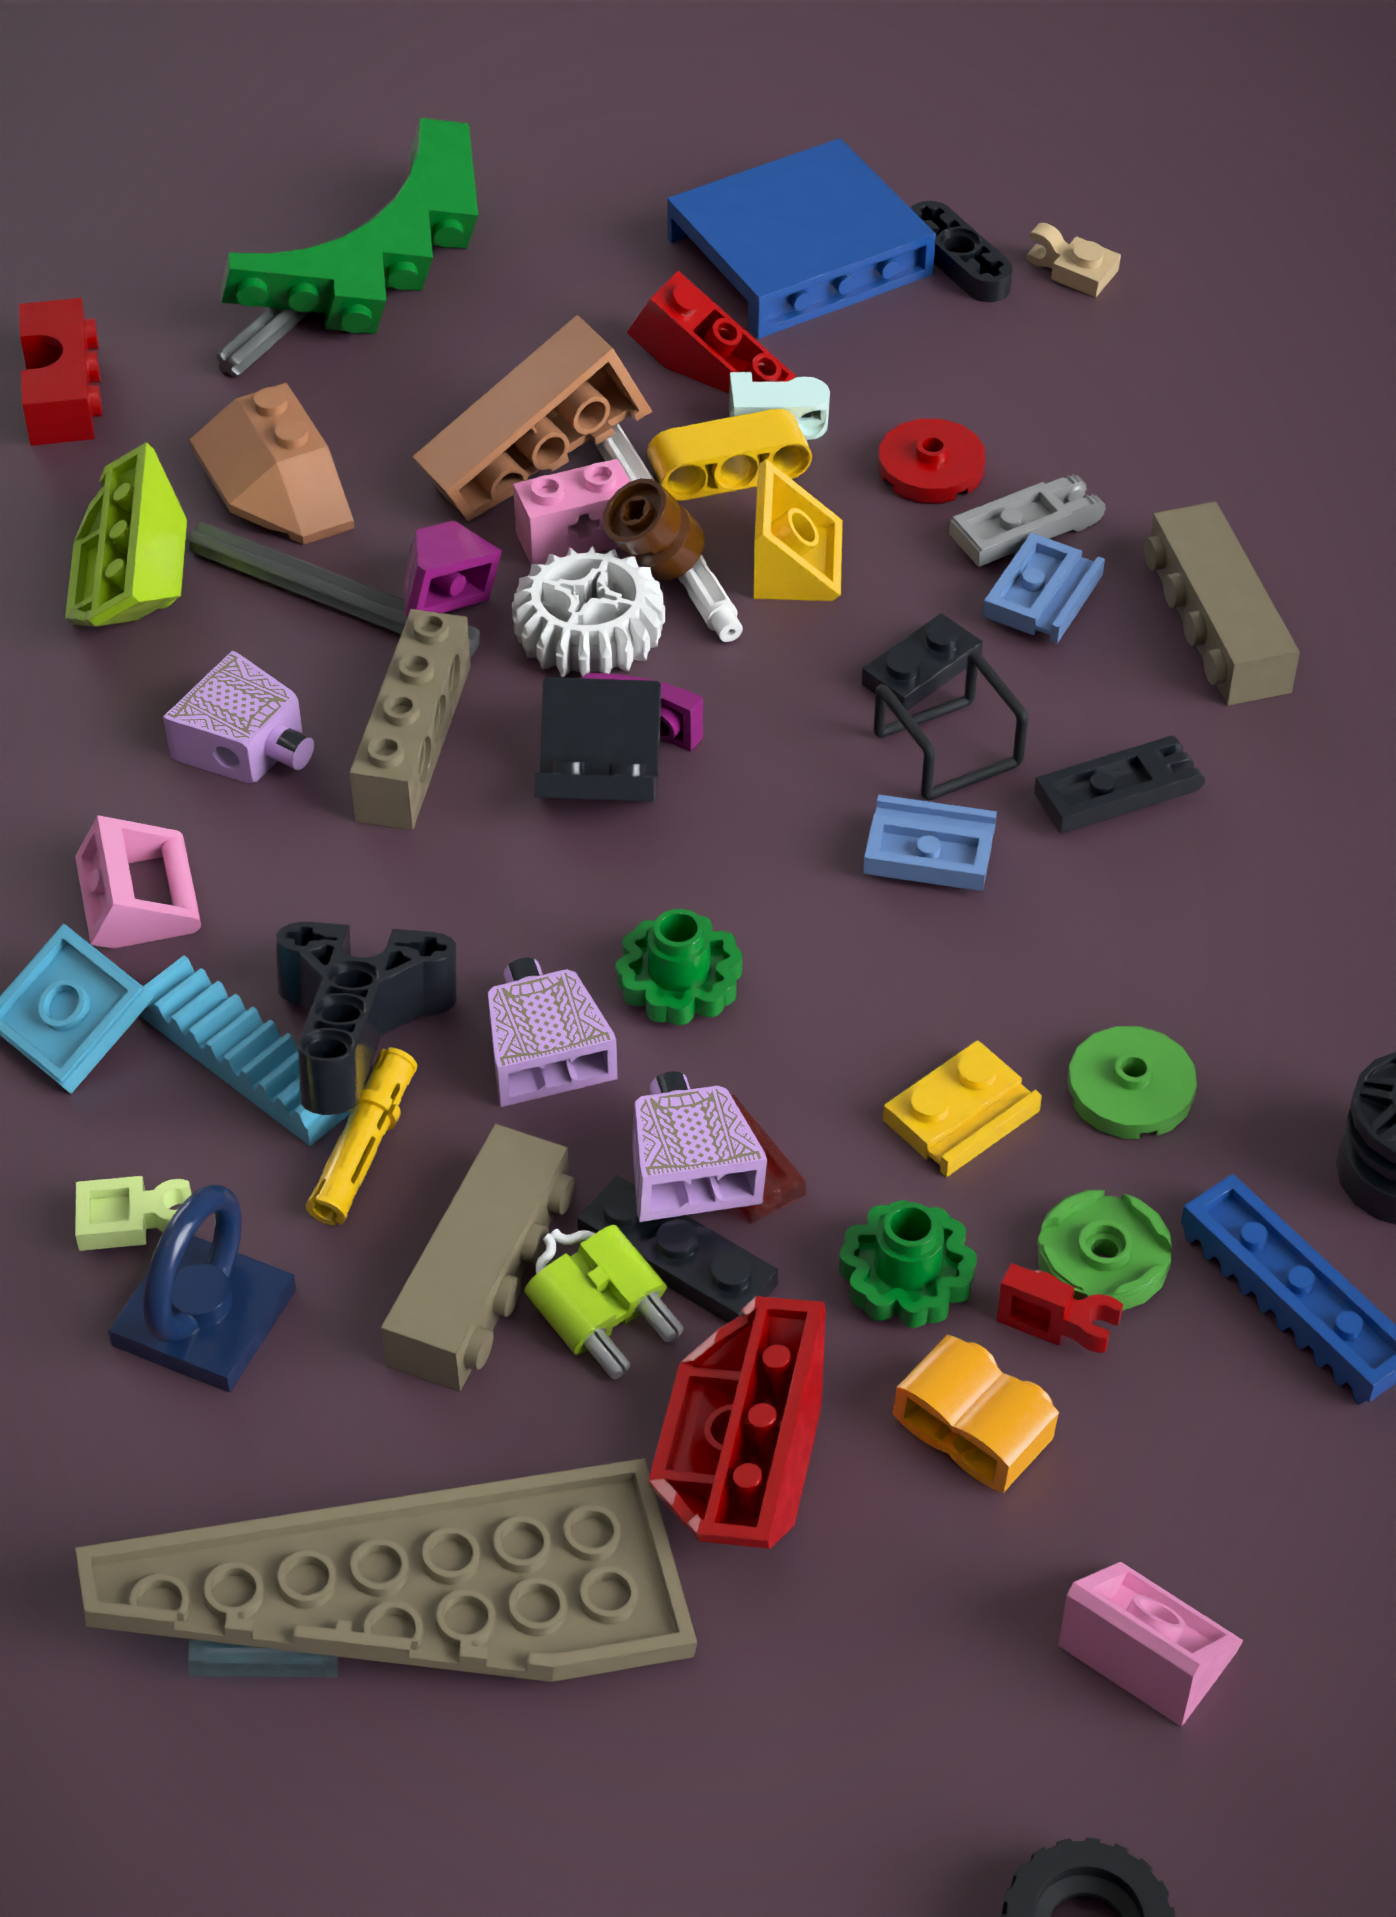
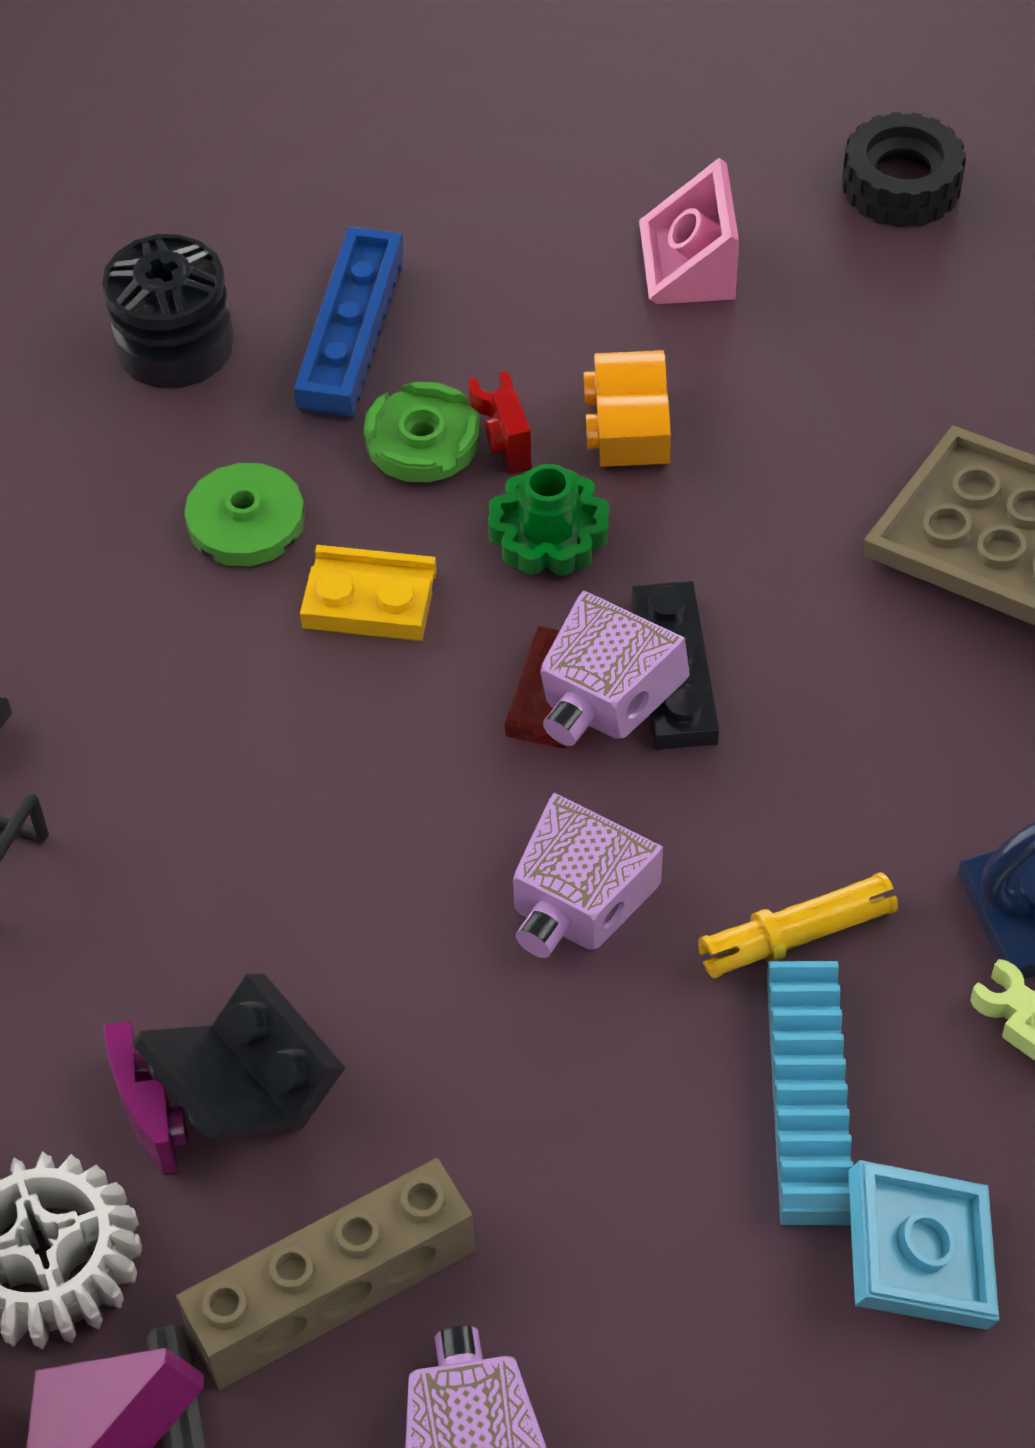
camera: 130 degrees left, 5 degrees up
(107, 889) = (762, 1357): bright pink tile -> none
(356, 1001) = (703, 1044): black beam -> none
(477, 1258) = (819, 755): dark tan brick -> none
(597, 1291) = (768, 667): lime piece -> none
(679, 967) = (417, 846): green plant -> none
(744, 1424) = (798, 482): red wedge -> none
(930, 842) = (112, 778): medium blue plate -> none

